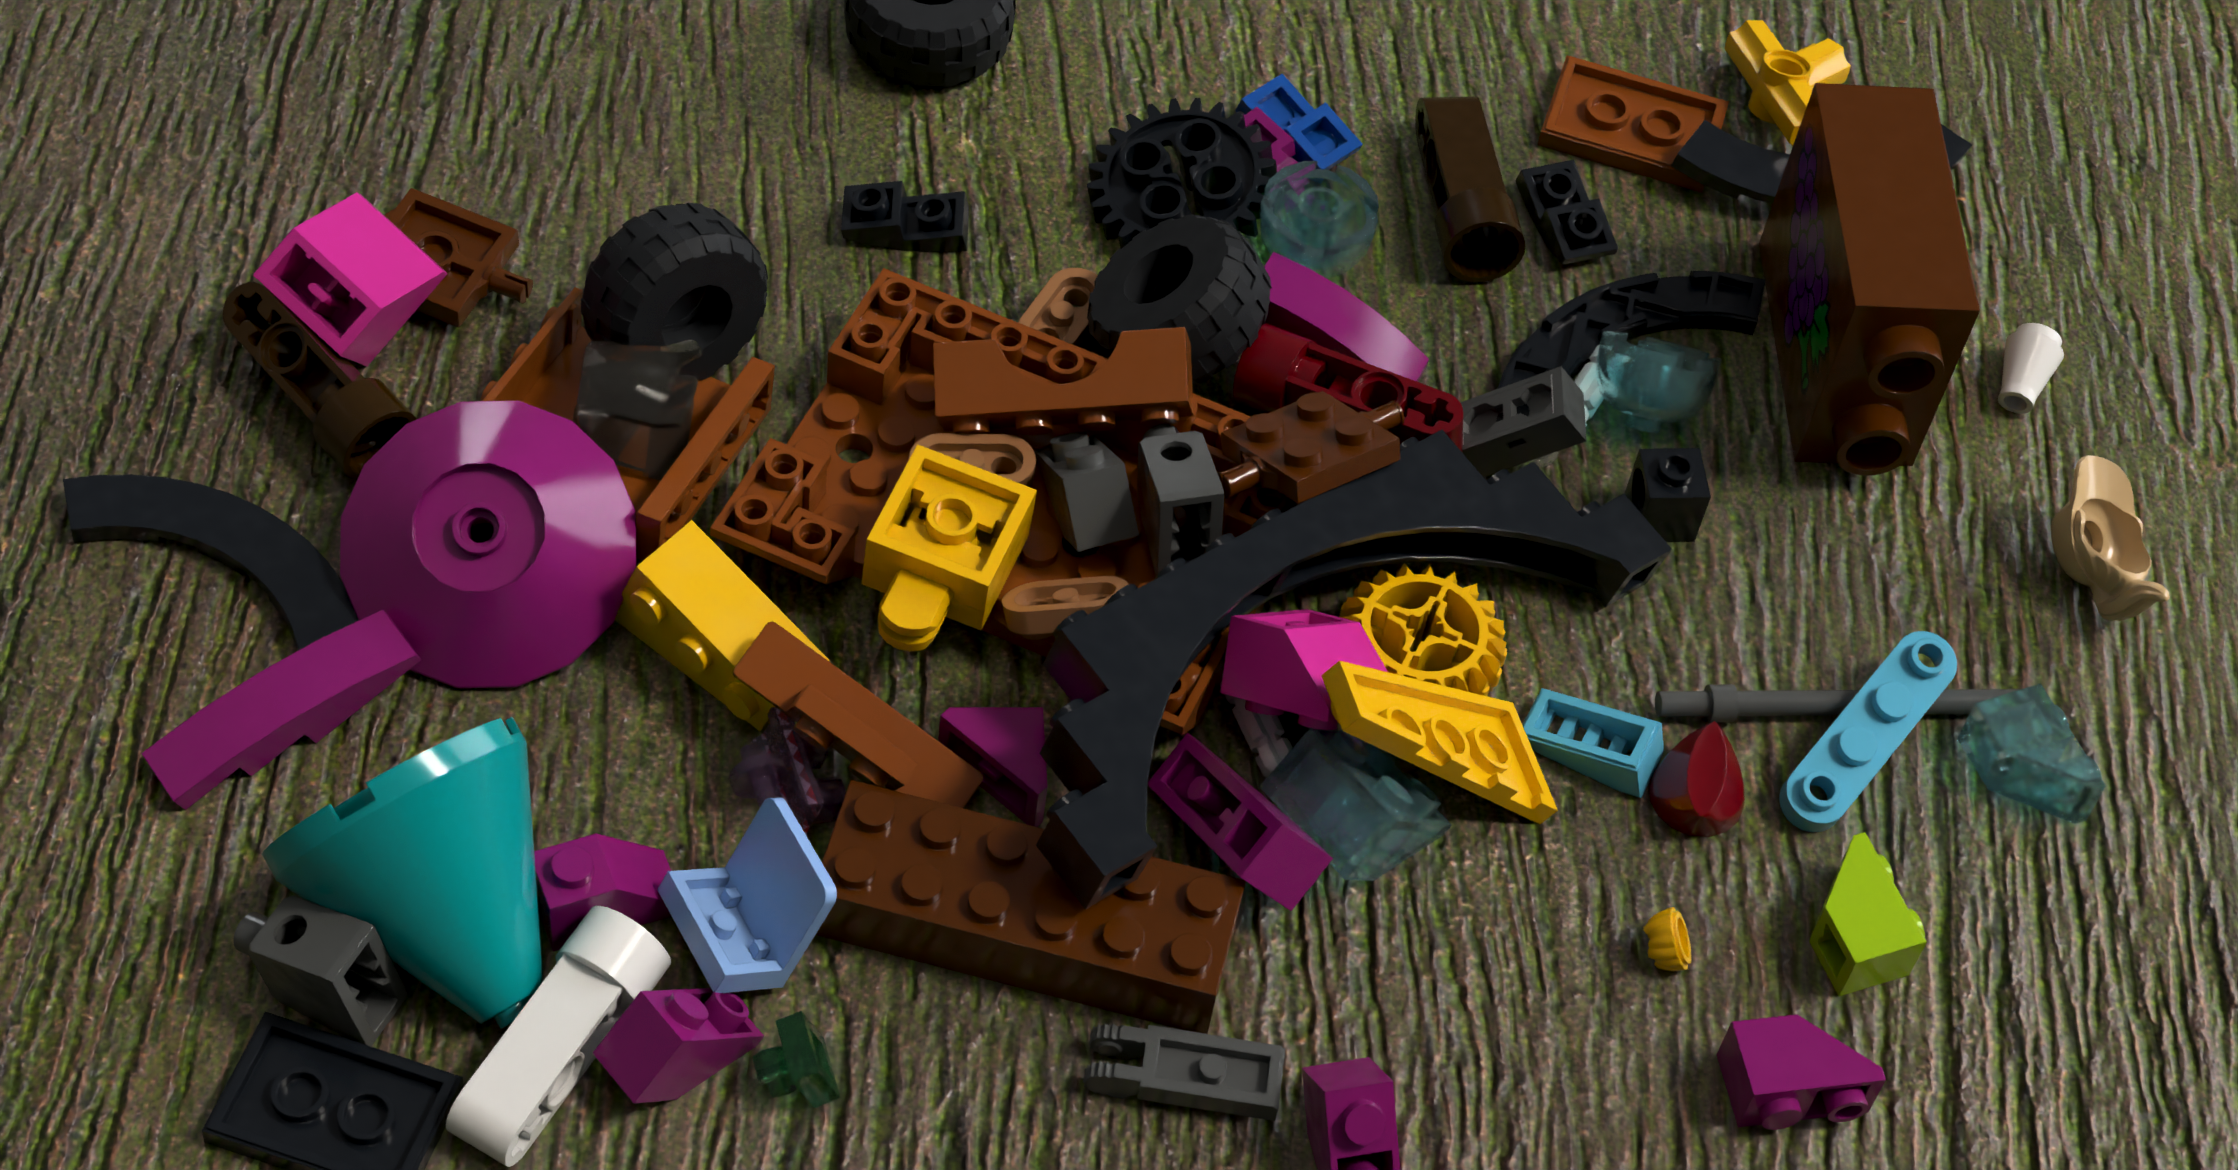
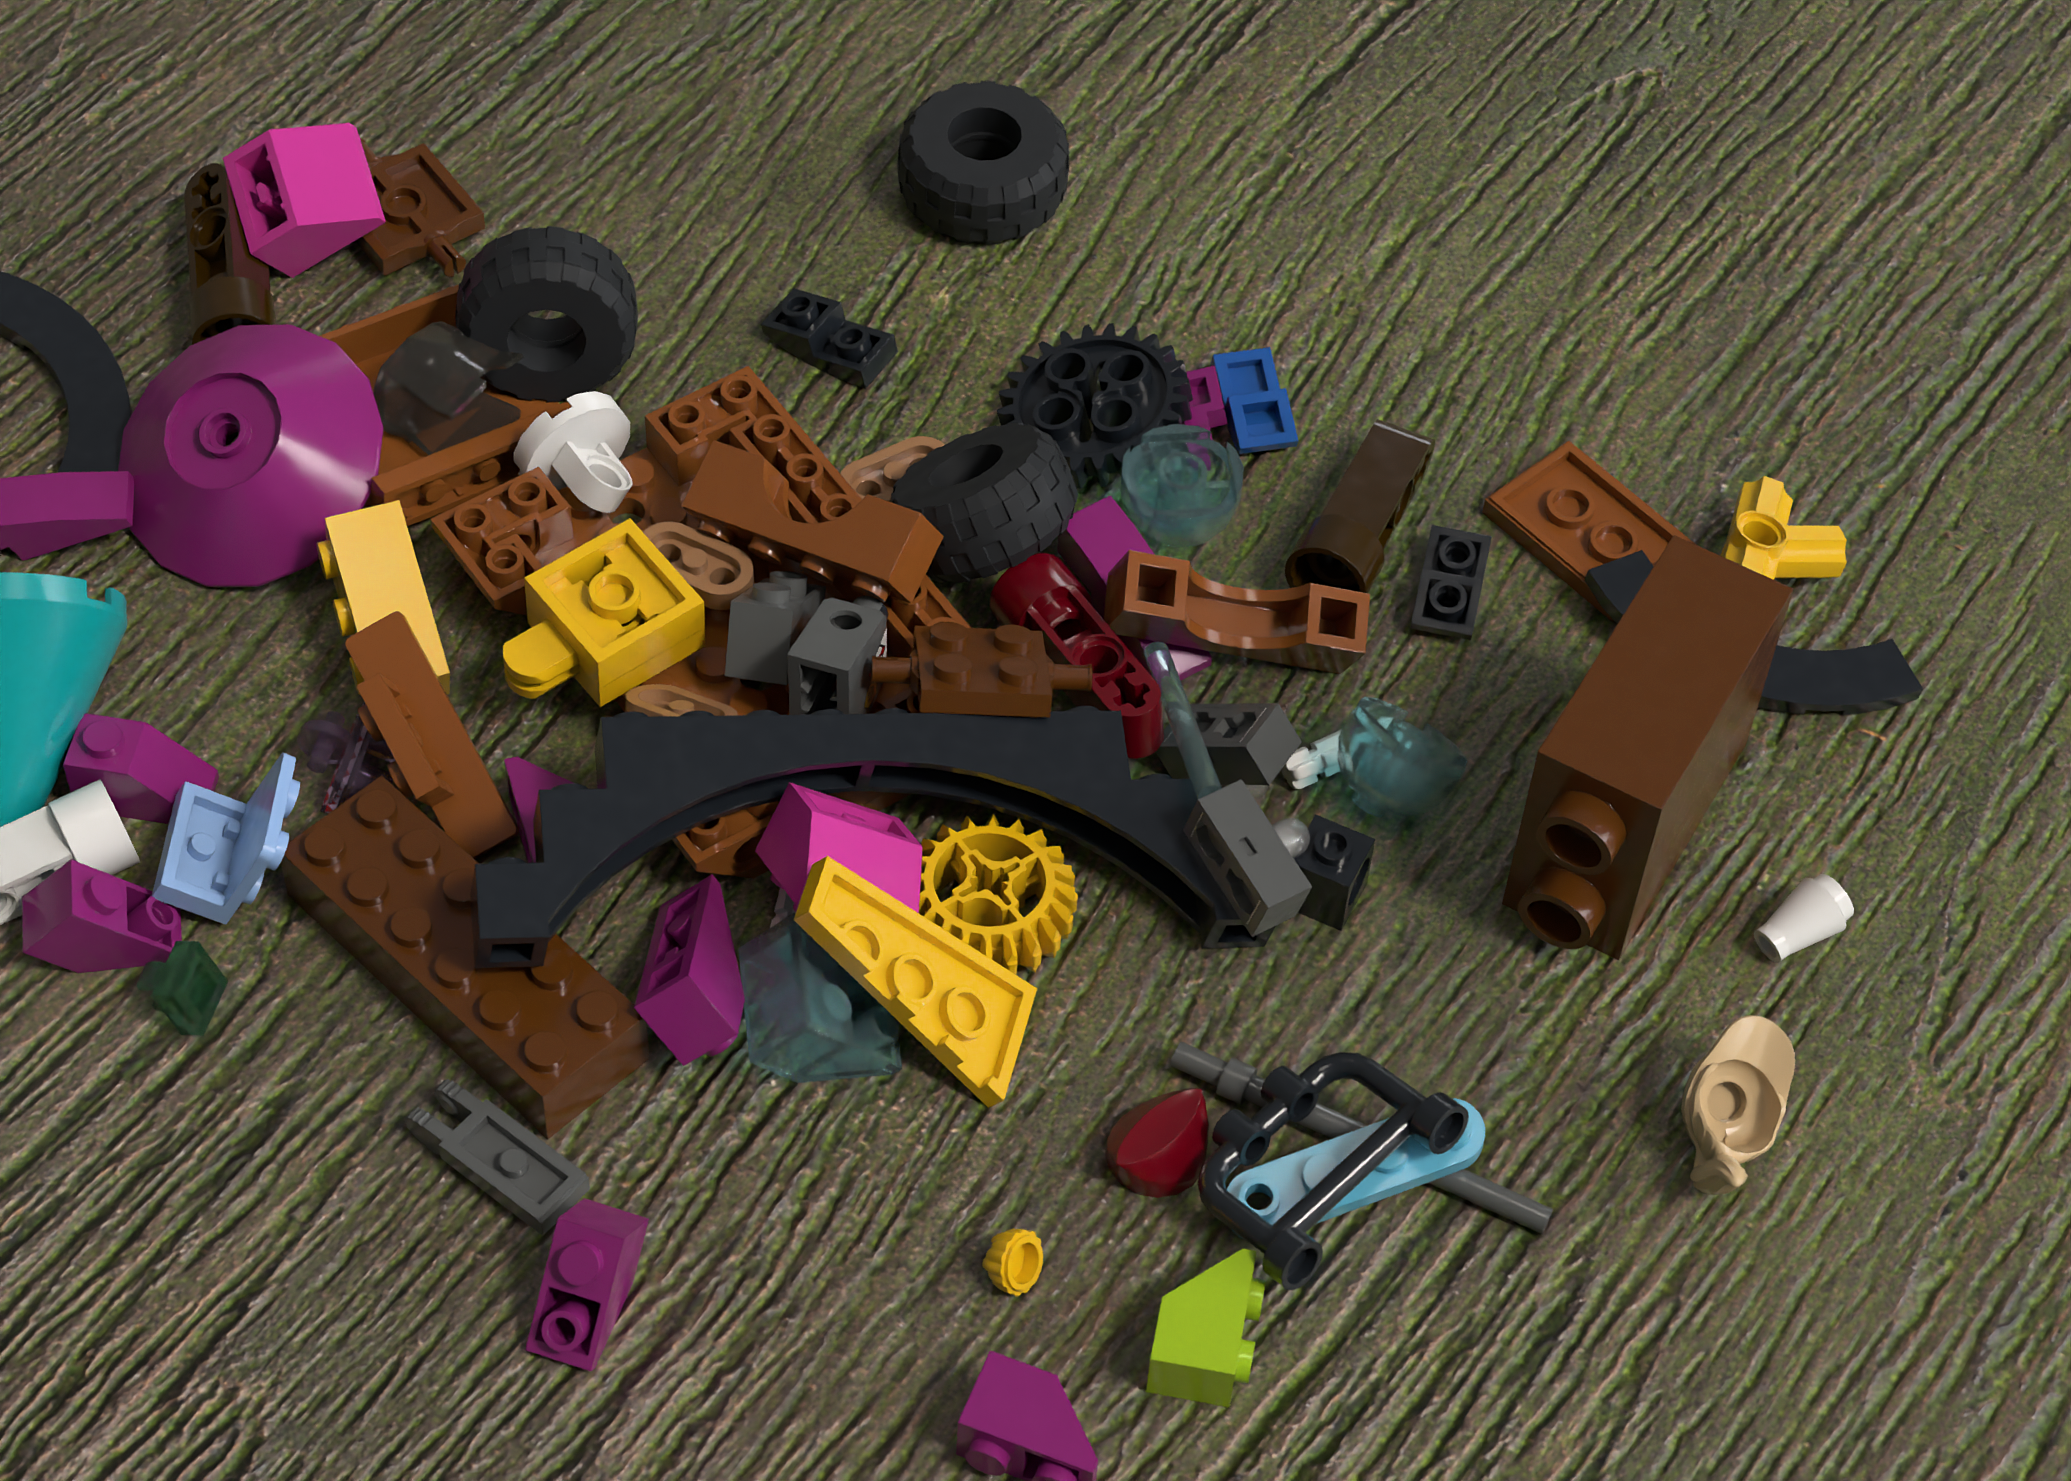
camera: 35 degrees right, 0 degrees up
(790, 411) = (581, 450): none -> white tile
(1402, 322) = (1295, 626): none -> dark orange arch
(1502, 430) = (1182, 720): none -> clear light blue bar
(1610, 766) = (1108, 1092): medium azure slope -> none
(1632, 506) = (1250, 856): none -> dark grey piece
(1638, 308) = (1432, 695): black tile -> none
(1787, 694) = (1288, 1251): none -> black bar
(2030, 754) = (1498, 1264): clear light blue slope -> none

